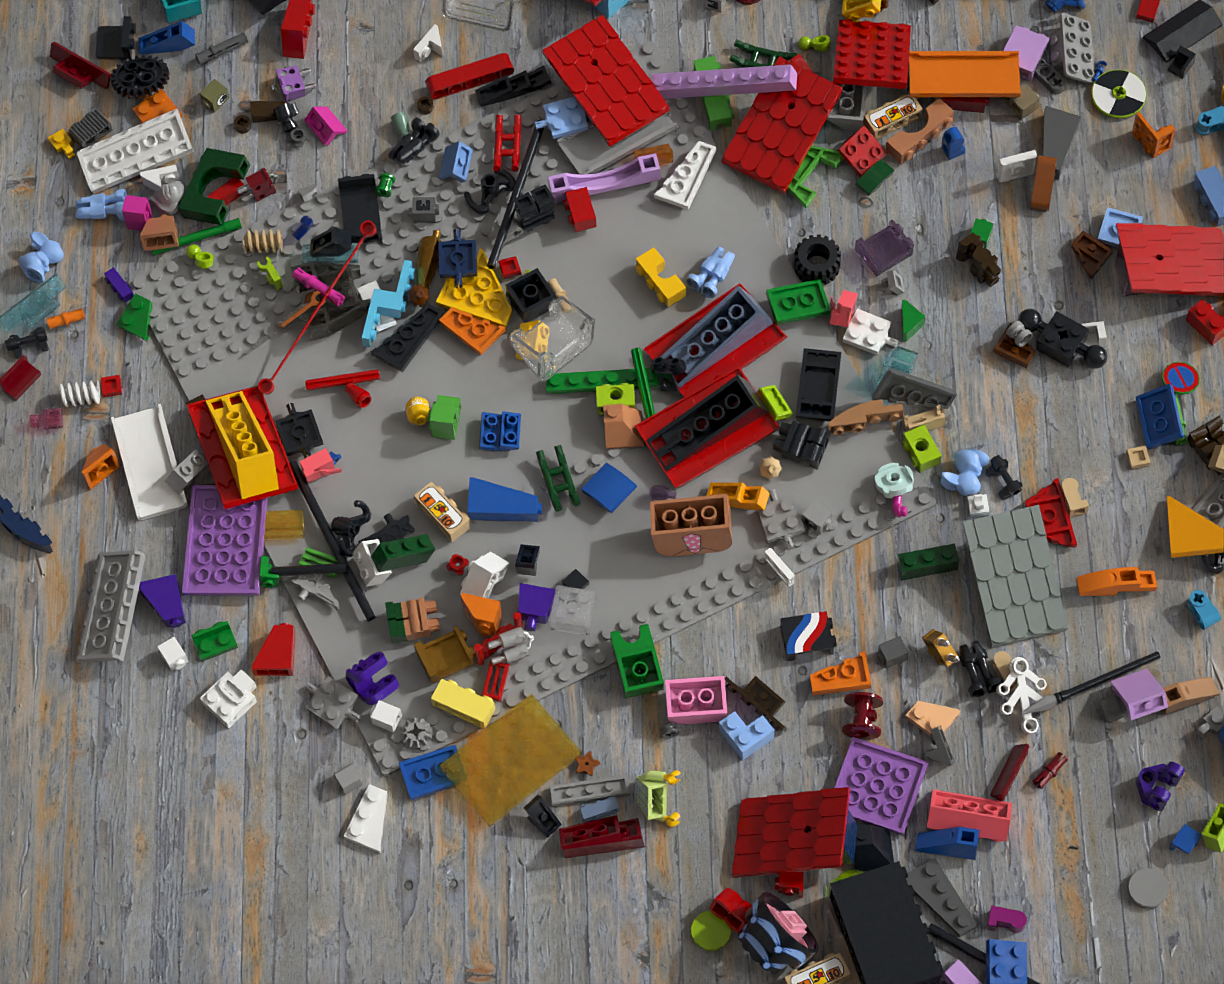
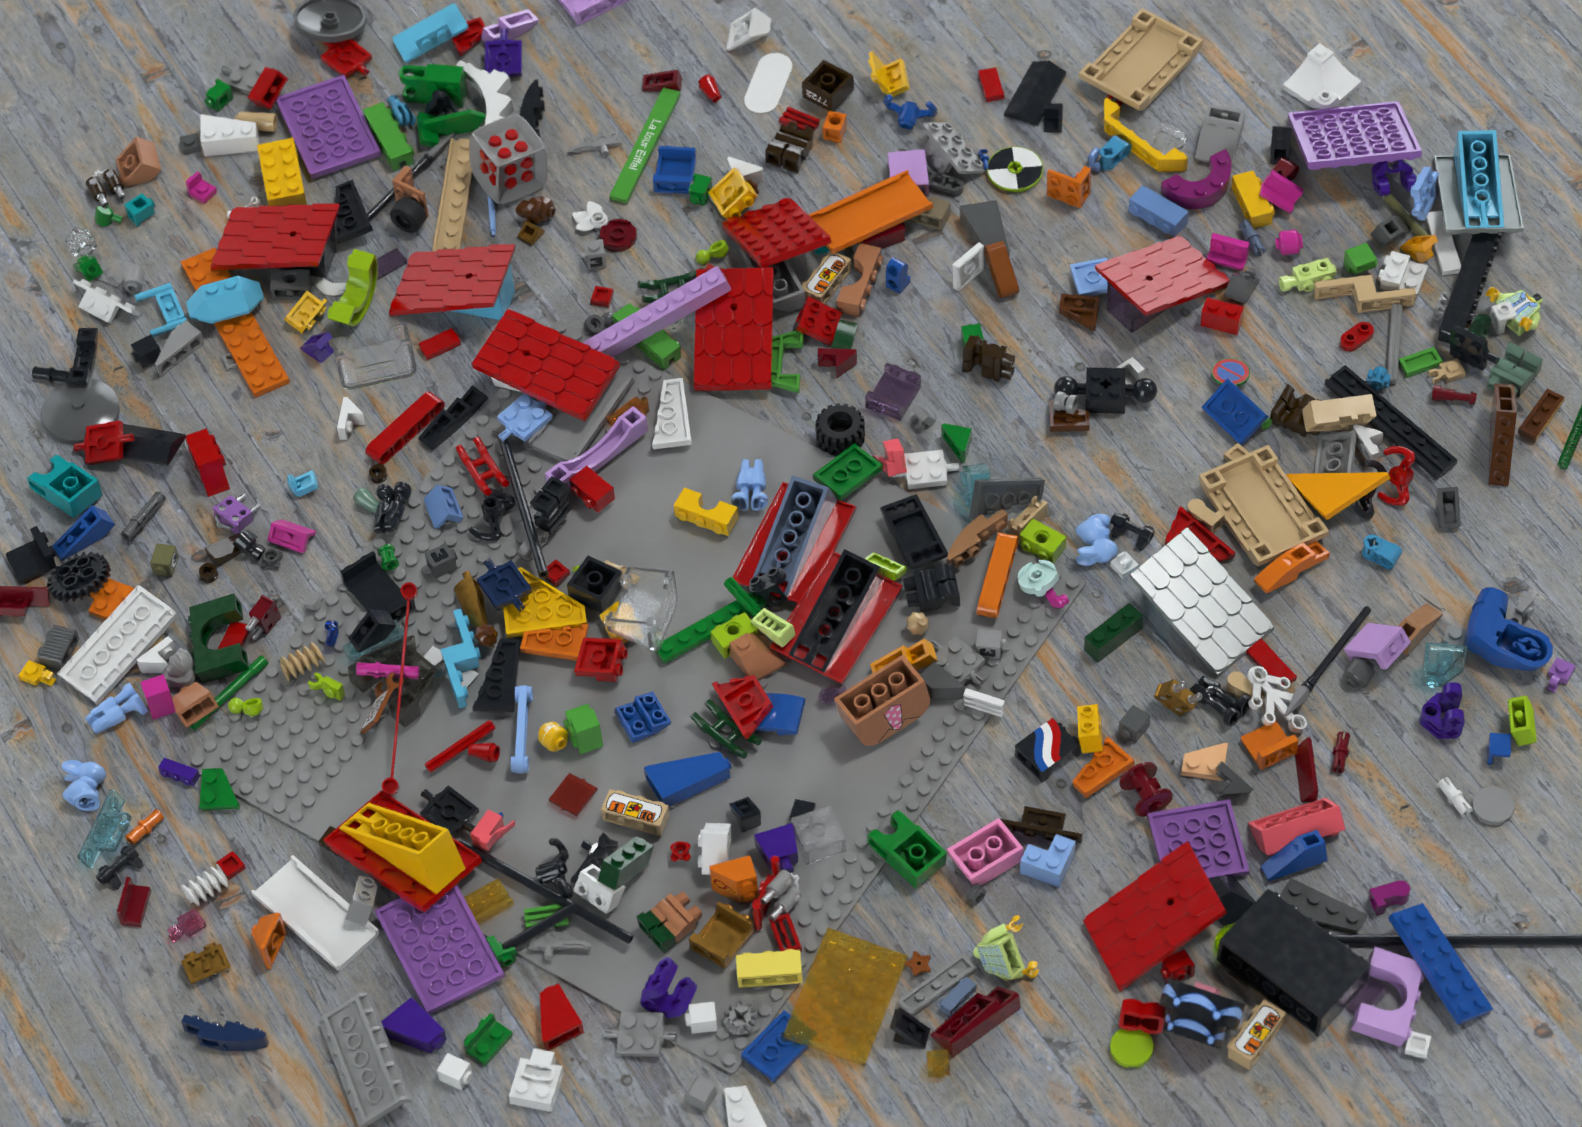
camera: 30 degrees left, 10 degrees down
(42, 459) = (205, 963): none -> pearl gold bracket
(360, 84) = (303, 484): none -> medium azure plate
(405, 468) = (573, 794): none -> clear red piece
(416, 363) = (520, 761): none -> light blue piece
(496, 363) = (601, 659): none -> red plate
(543, 14) = (439, 344): none -> red tile
(546, 858) = (938, 1063): none -> clear yellow plate
(586, 463) = (745, 702): none -> red wing
(652, 420) = (782, 635): none -> yellowish green slope
(682, 60) = (598, 323): none -> dark grey plate
(700, 37) = (602, 296): none -> red tile
(752, 530) = (941, 683): none -> dark grey slope
(851, 637) = (1089, 728): none -> yellow brick
(858, 195) = (841, 358): none -> dark red slope
(863, 459) = (997, 575): none -> orange beam
(993, 731) = (1269, 745): none -> orange bracket
(1044, 659) = (1269, 660): none -> red tile
(1120, 863) = (1455, 797): none -> white pin
(1127, 514) = (1261, 506): none -> tan slope
(1184, 740) = (1442, 663): none -> clear light blue slope
(1191, 117) = (1092, 158): none -> medium blue arm

